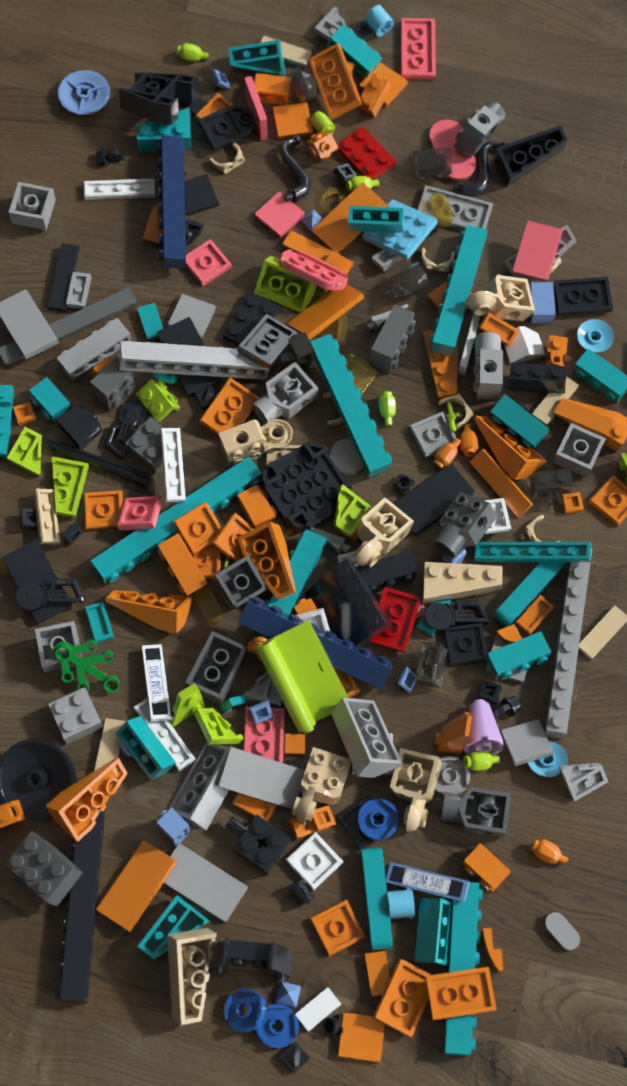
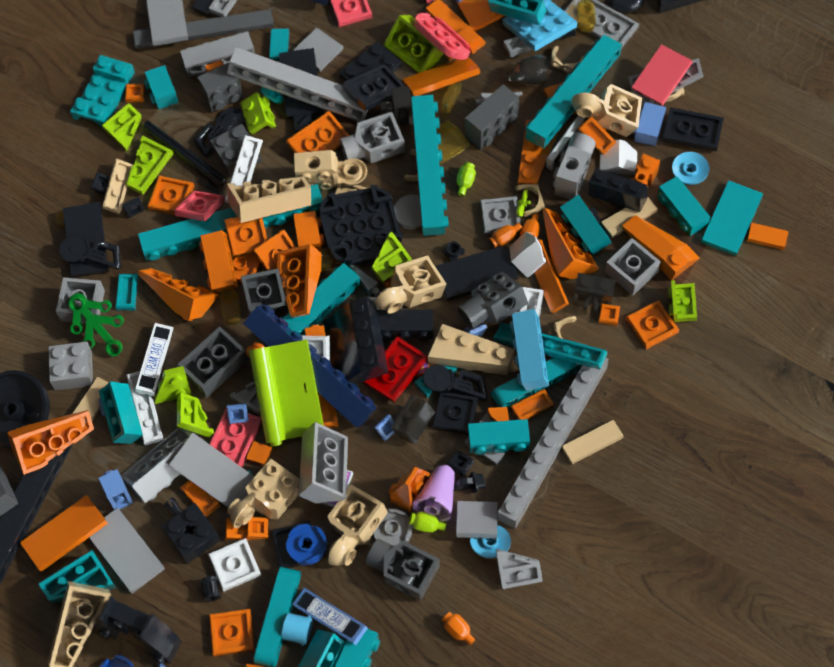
camera: 25 degrees right, 5 degrees down
(79, 425) = (178, 116): black torso -> none
(210, 488) = (268, 198): none -> tan wedge
(239, 700) = (216, 397): teal tile -> none
(476, 466) = (527, 254): none -> white slope
(485, 868) = (391, 622): orange brick -> none
(518, 562) = (529, 349): none -> medium azure brick

